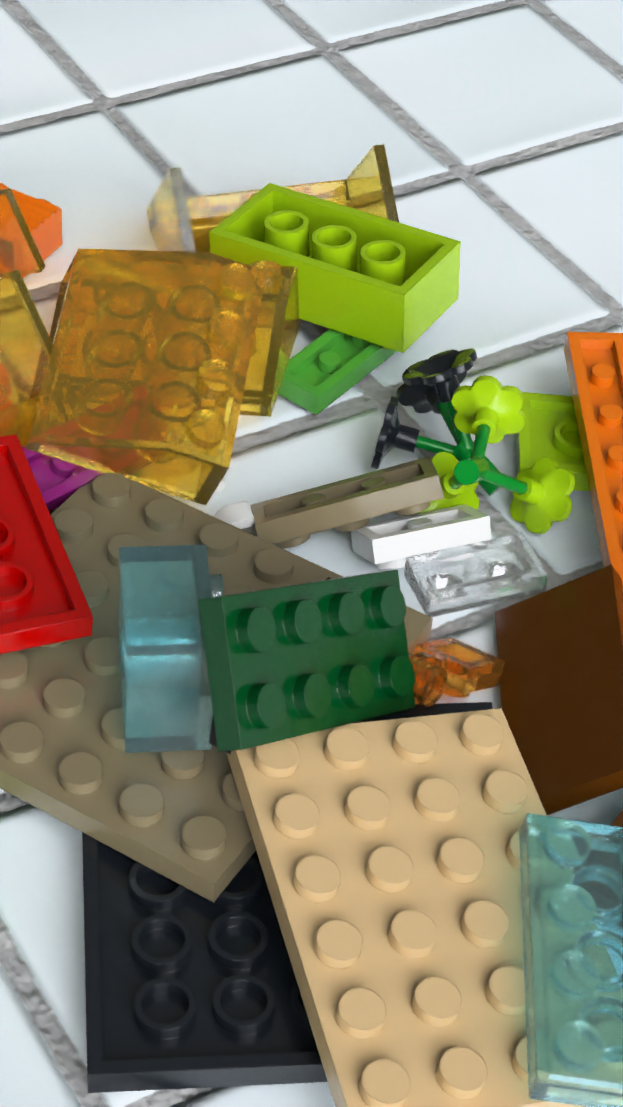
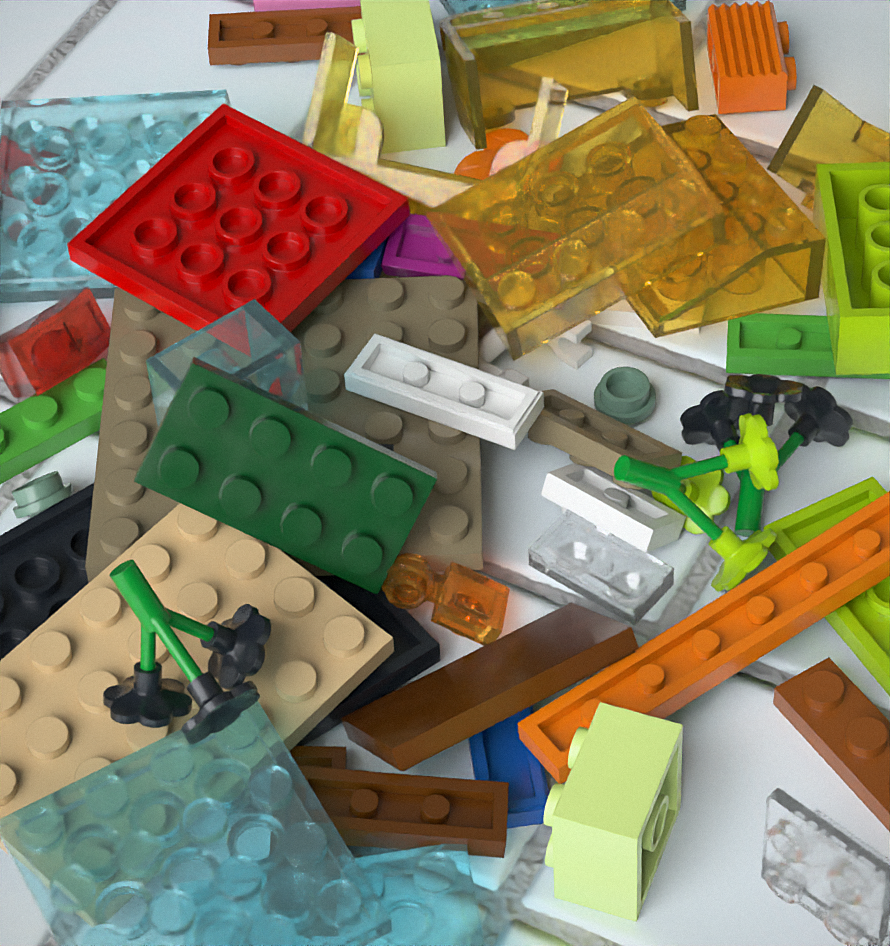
camera: 65 degrees right, 5 degrees up
(52, 891) = (40, 494): none -> sand green plate
(262, 532) = (444, 391): none -> white tile
(296, 469) = (625, 395): none -> sand green plate
(483, 795) = (155, 701): none -> black plant

